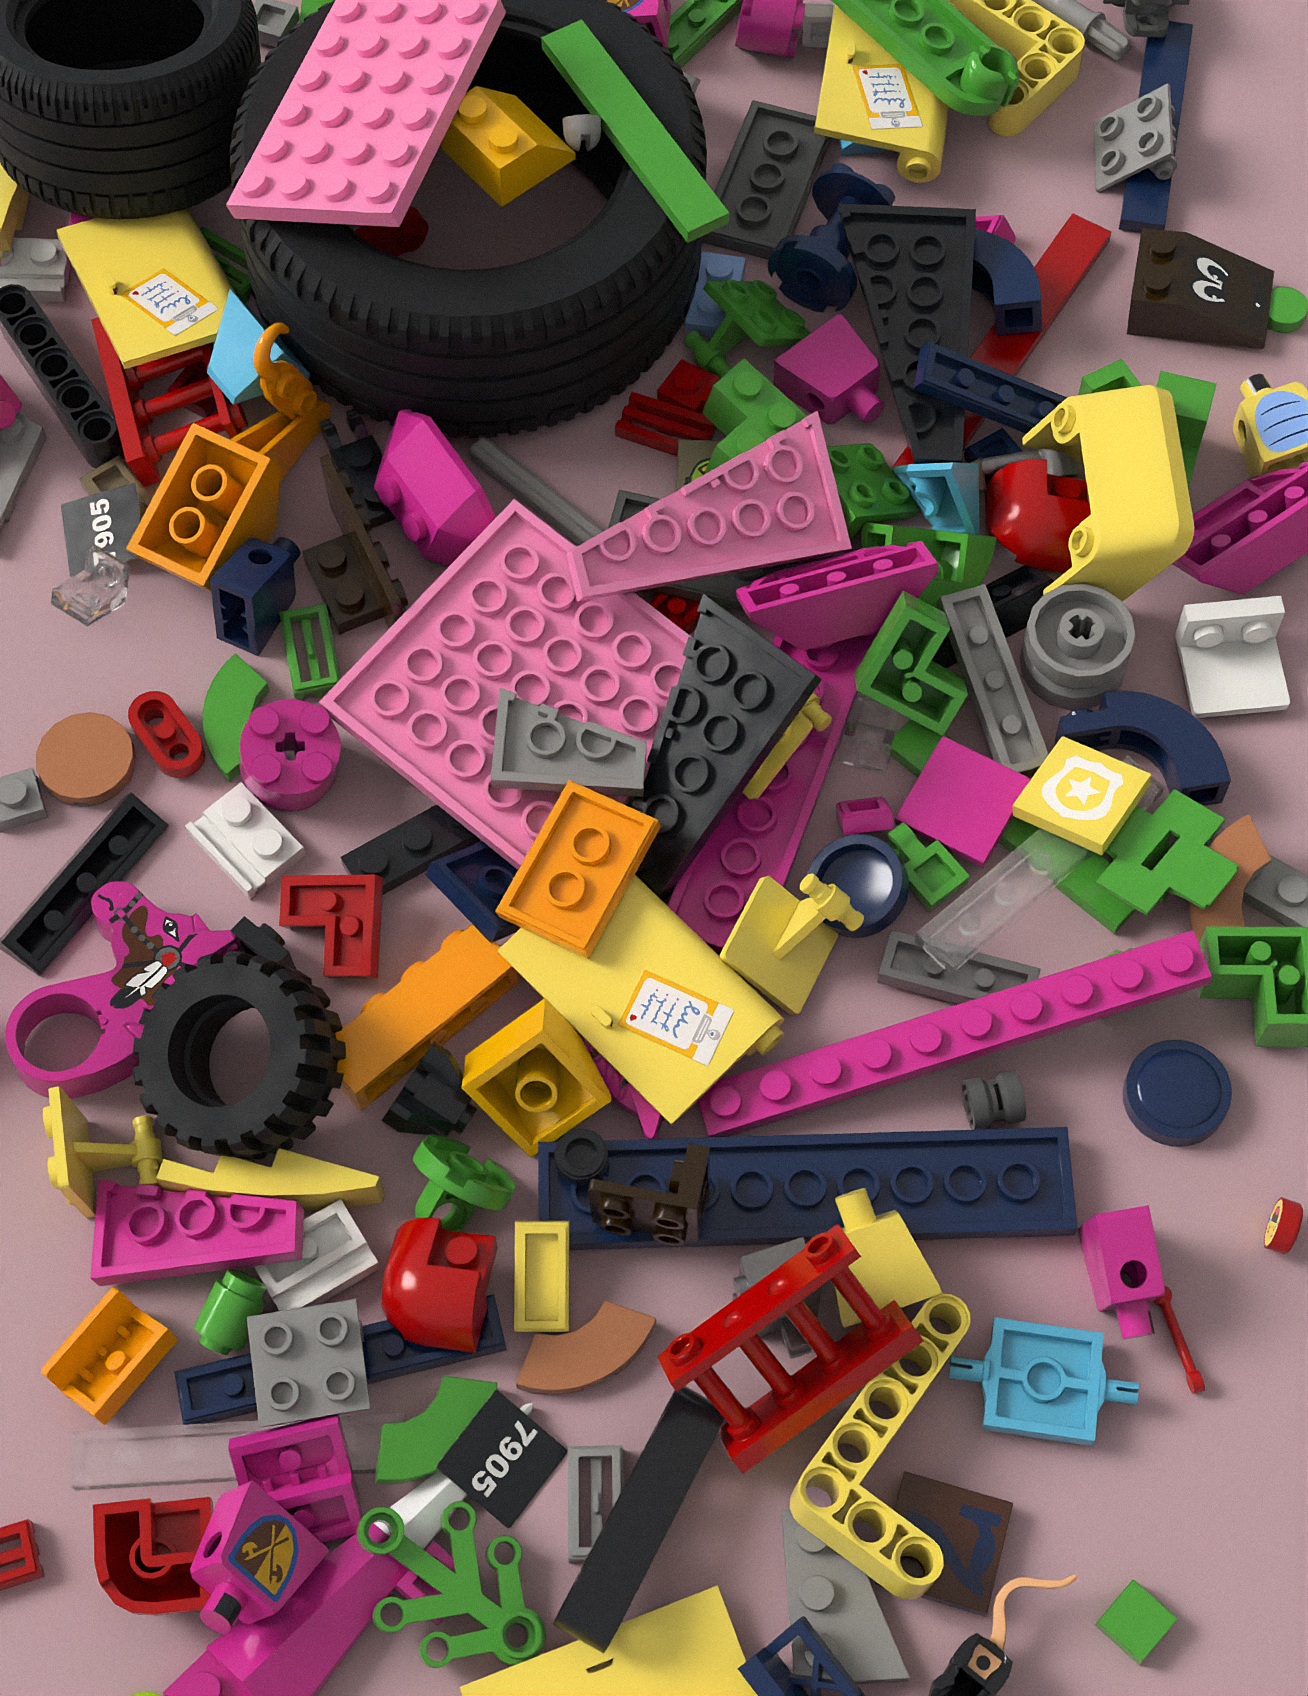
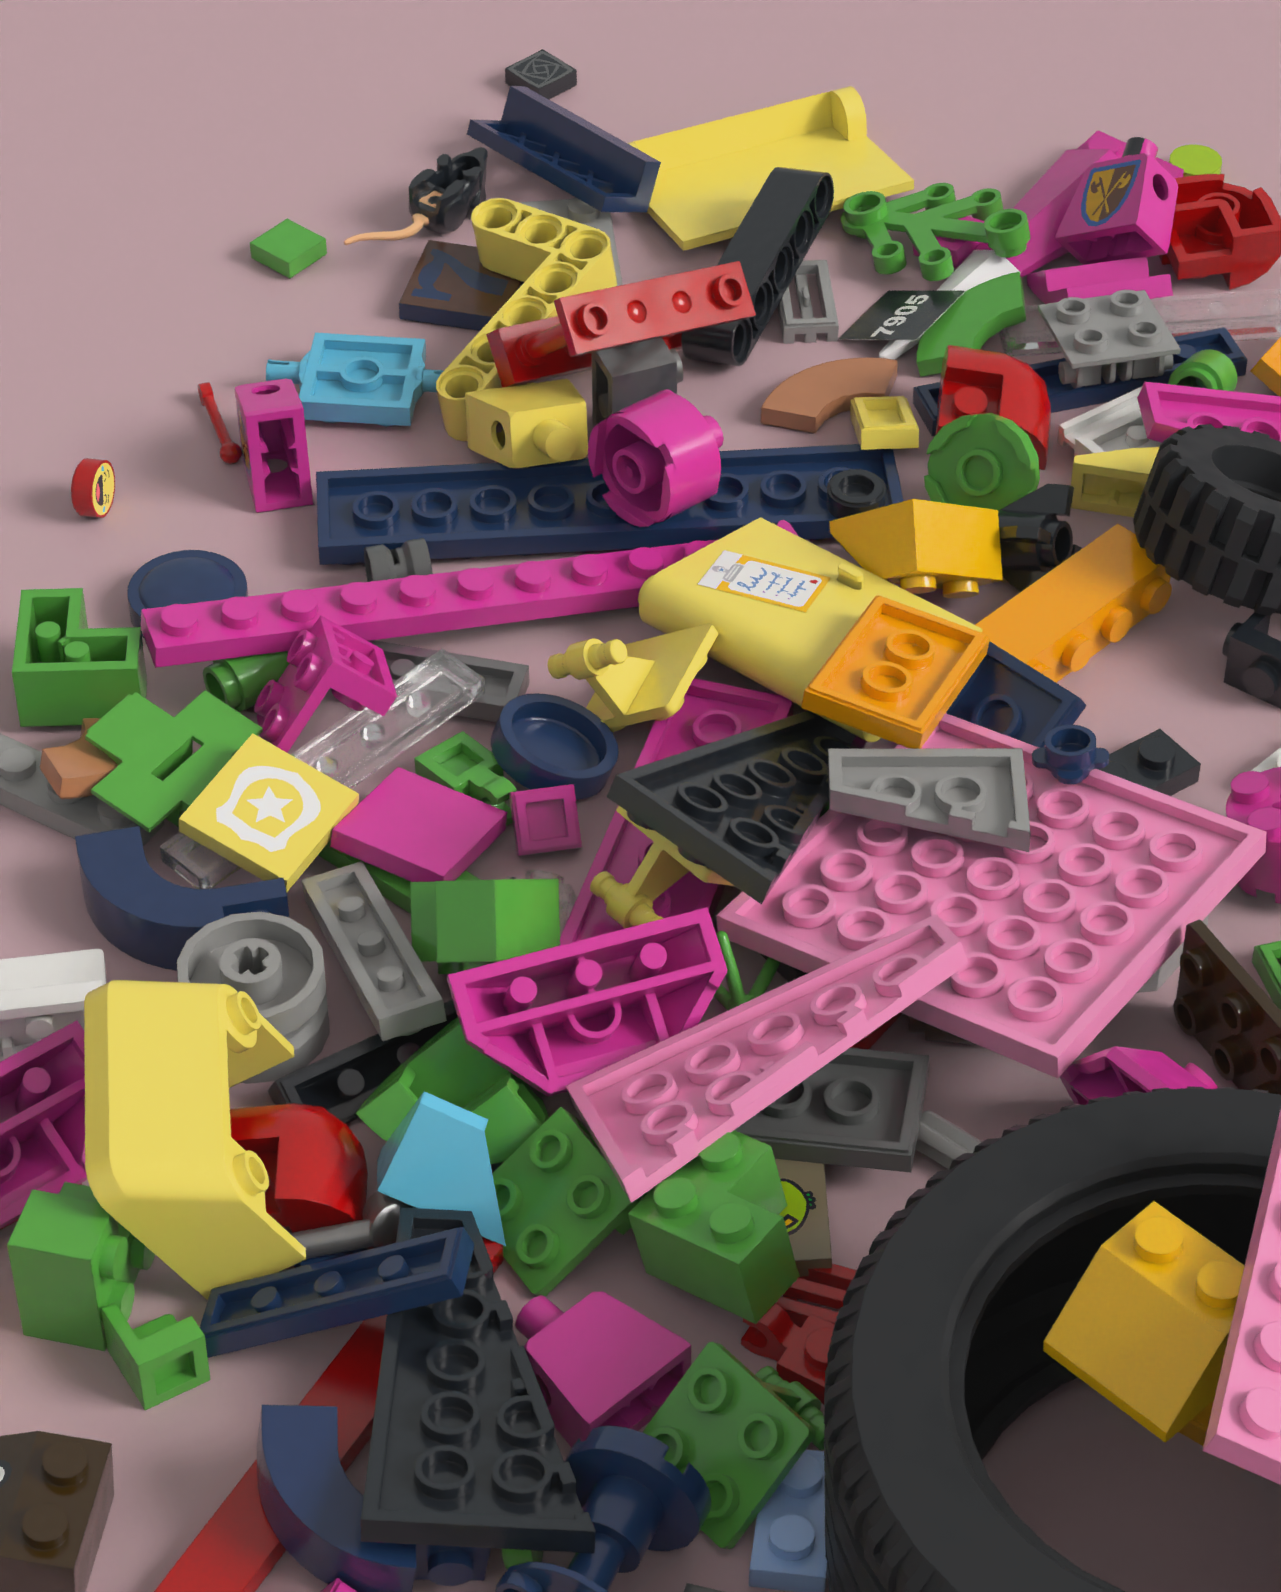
camera: 175 degrees right, 20 degrees down
(348, 911) = (1171, 699): red plate -> none
(451, 775) = (1070, 754): none -> dark blue plate
(582, 128) = (1056, 1362): light grey hinge -> none
(635, 131) = (959, 1389): bright green tile -> none
(665, 1215) = (776, 415): dark brown bracket -> none
(764, 1157) = (656, 458): none -> dark pink brick
(1046, 918) = (321, 661): none -> dark pink bracket

